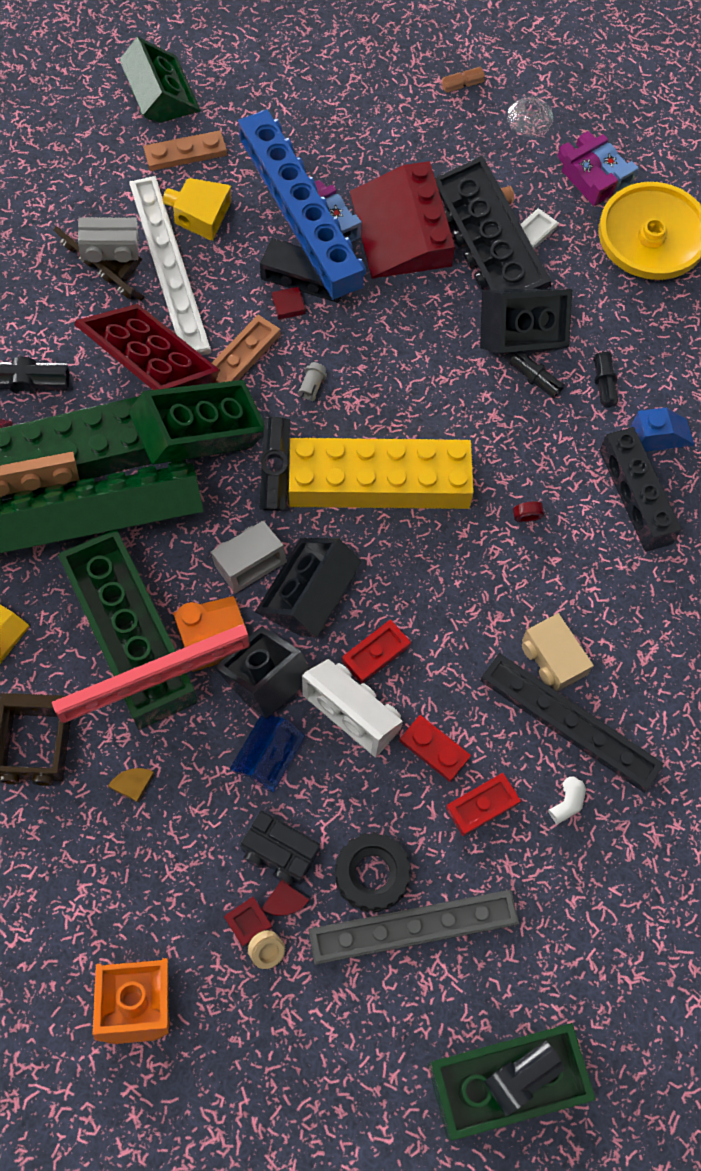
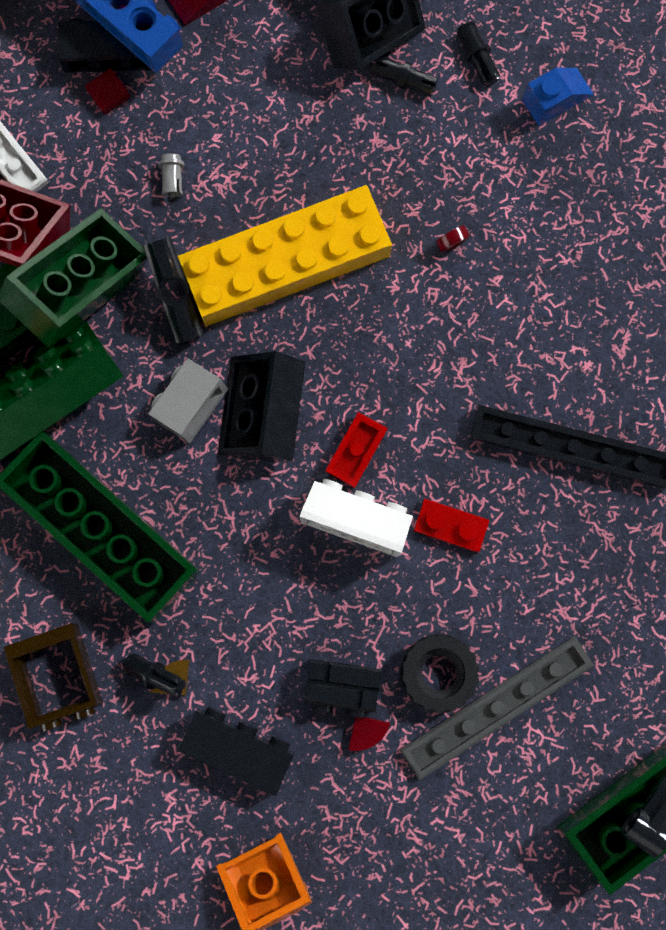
camera: 20 degrees left, 15 degrees up
(117, 770) = (153, 675): none -> black axle
(151, 674) = (148, 574): coral tile -> none
(162, 866) = (237, 750): none -> black brick
(206, 620) = (184, 494): orange slope -> none
(246, 349) = (85, 168): nougat plate -> none
(247, 921) = (341, 767): dark red plate -> none
(264, 672) = (255, 516): black slope -> none
(266, 949) = (369, 786): tan tile -> none
(268, 751) = (290, 594): clear blue panel -> none
(483, 804) = (519, 564): red plate -> none
(556, 653) = (535, 382): tan brick -> none
(573, 800) = (603, 526): white arm -> none
(639, 489) = (556, 169): black brick -> none

